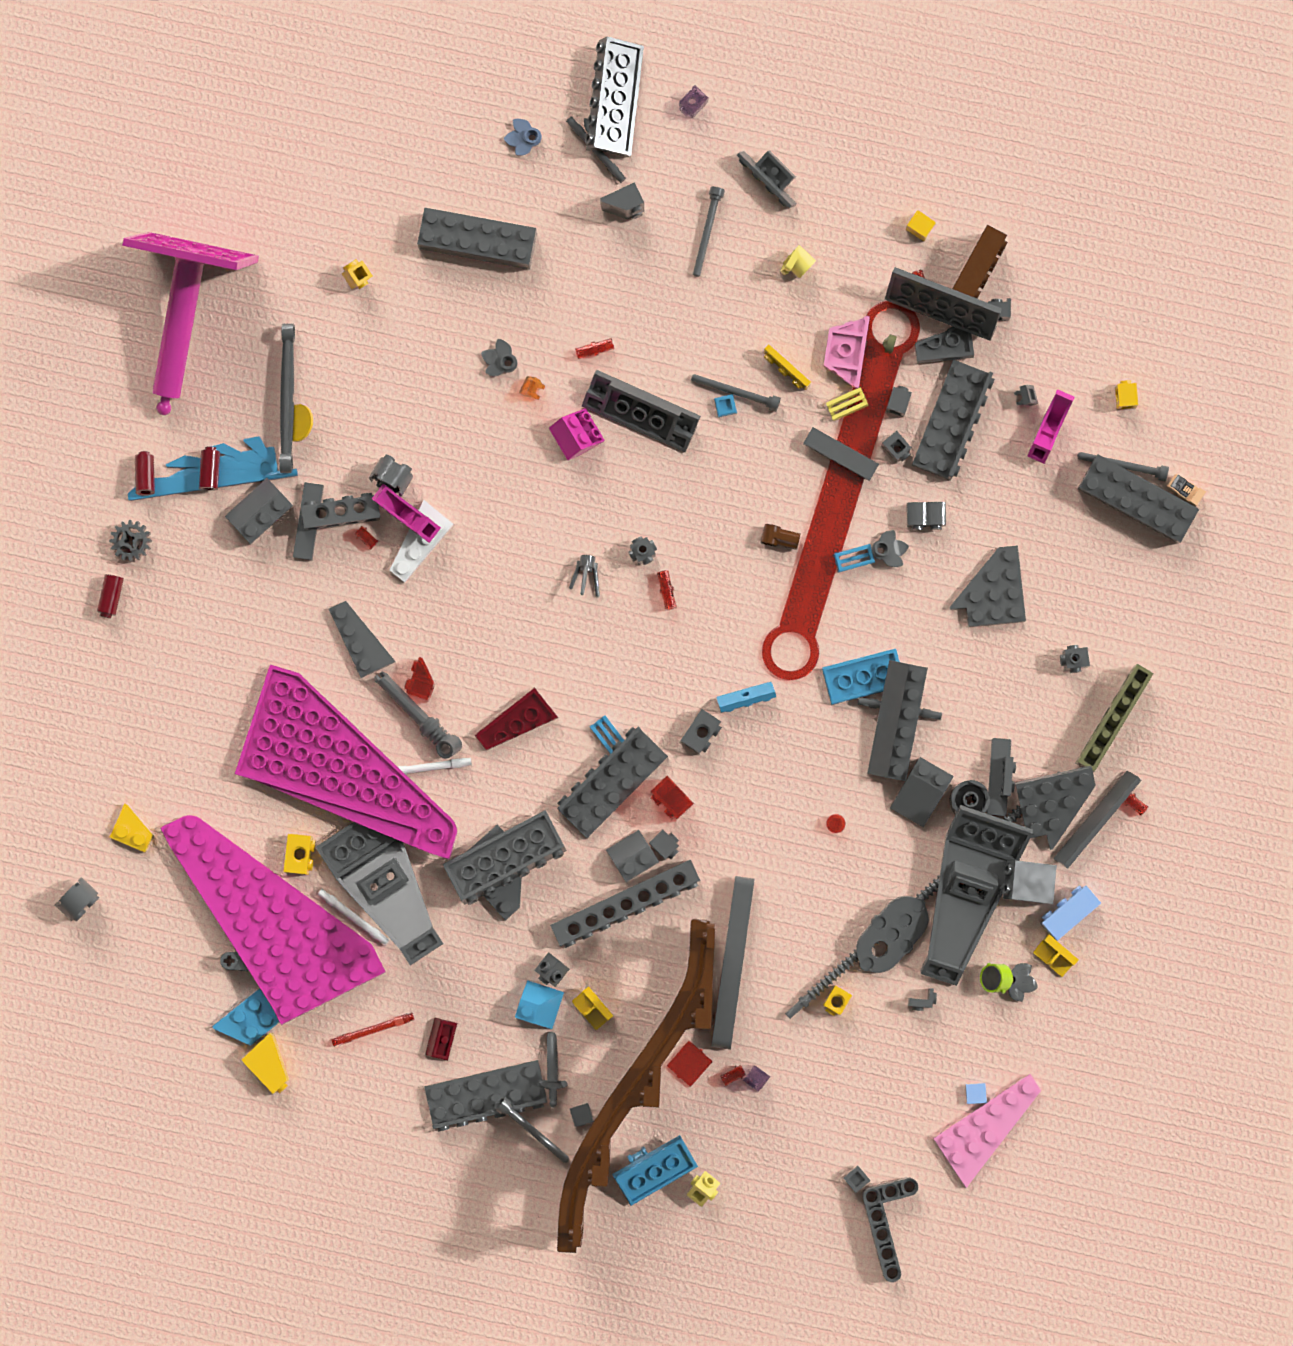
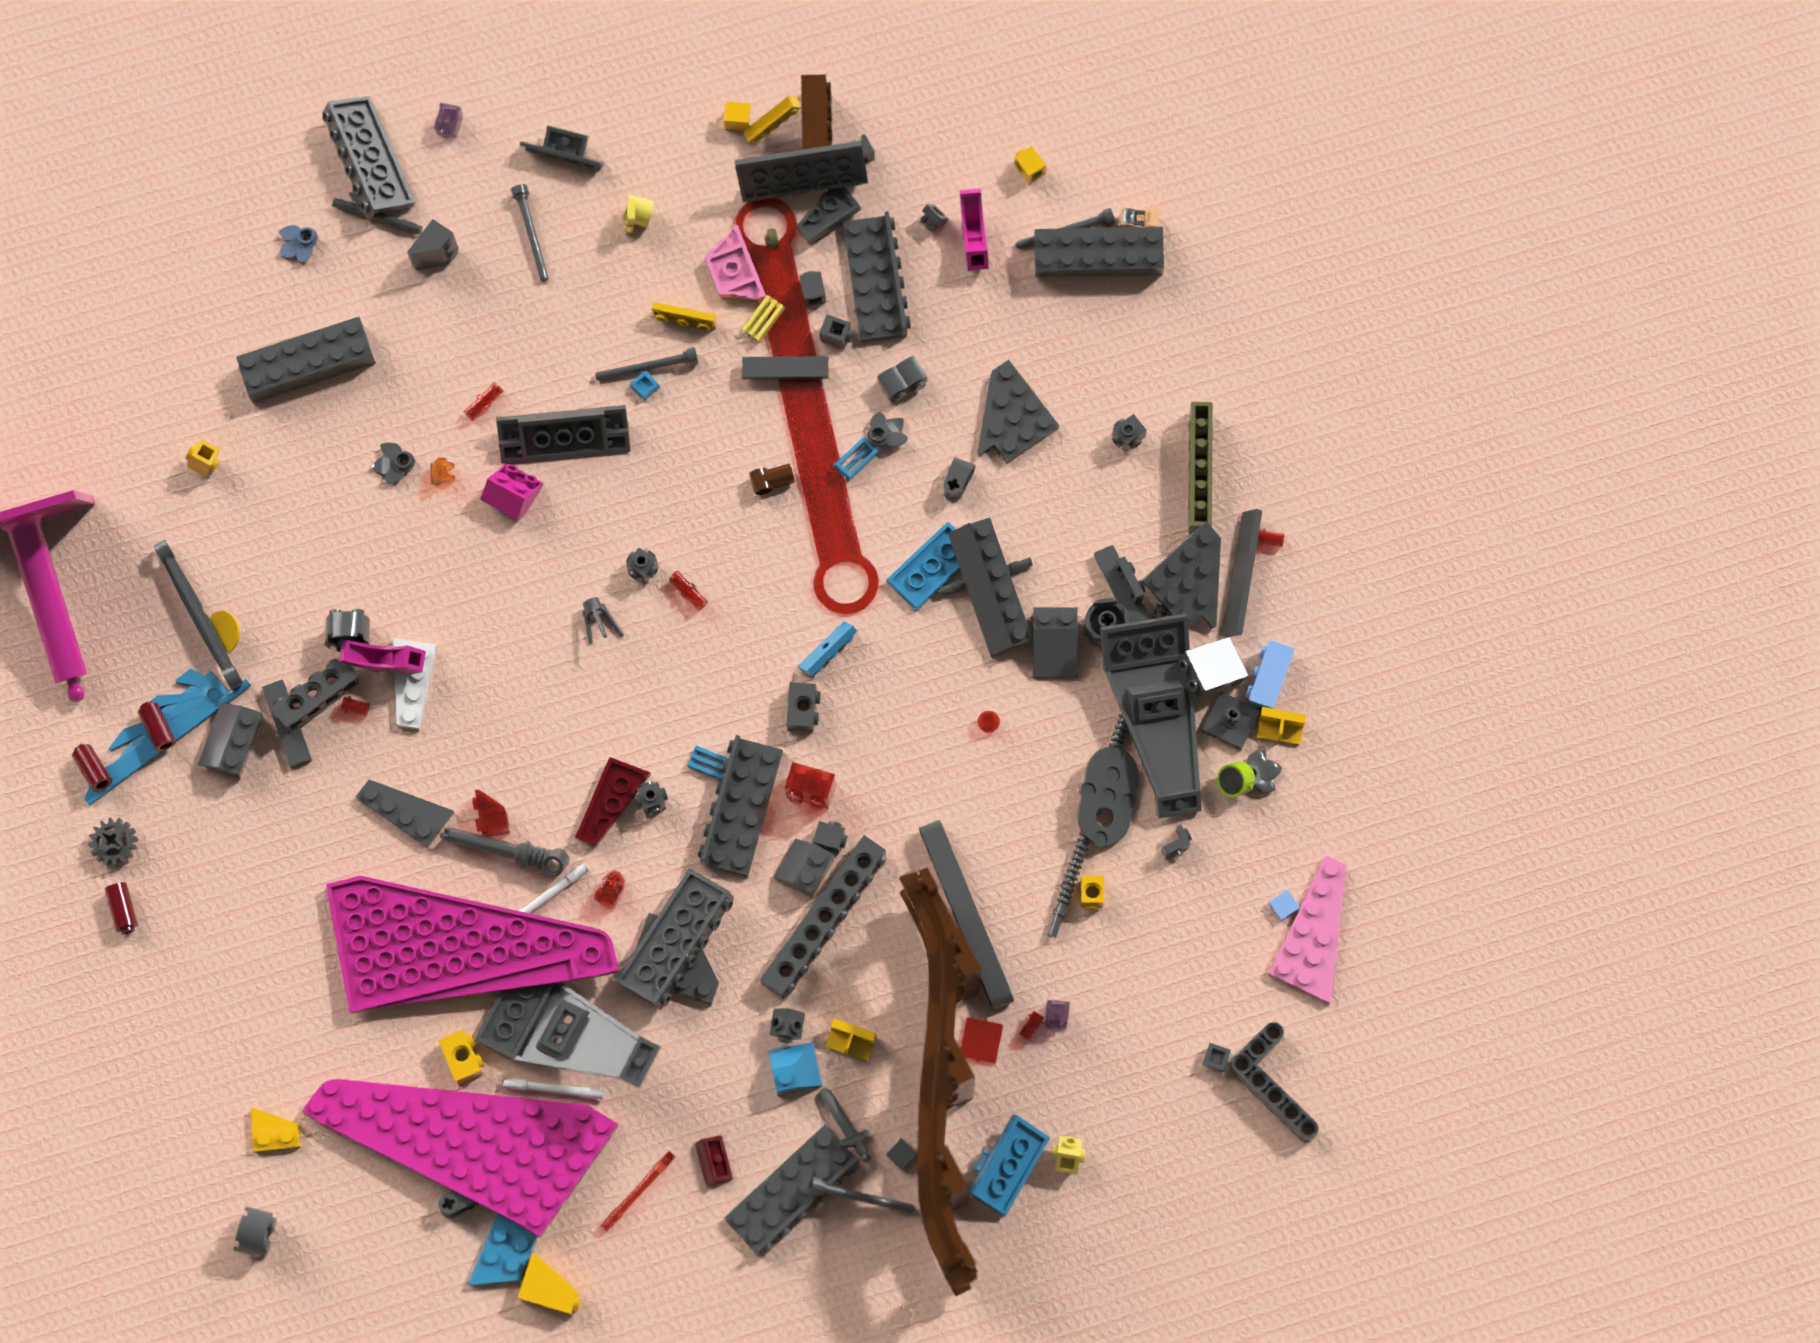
camera: 30 degrees left, 10 degrees down
(479, 789) = (610, 889): none -> clear red rock
(544, 745) = (654, 805): none -> dark grey brick
(924, 617) = (958, 476): none -> dark grey piece
(944, 246) = (772, 119): none -> yellow piece
(1020, 928) = (1231, 720): none -> dark grey tile

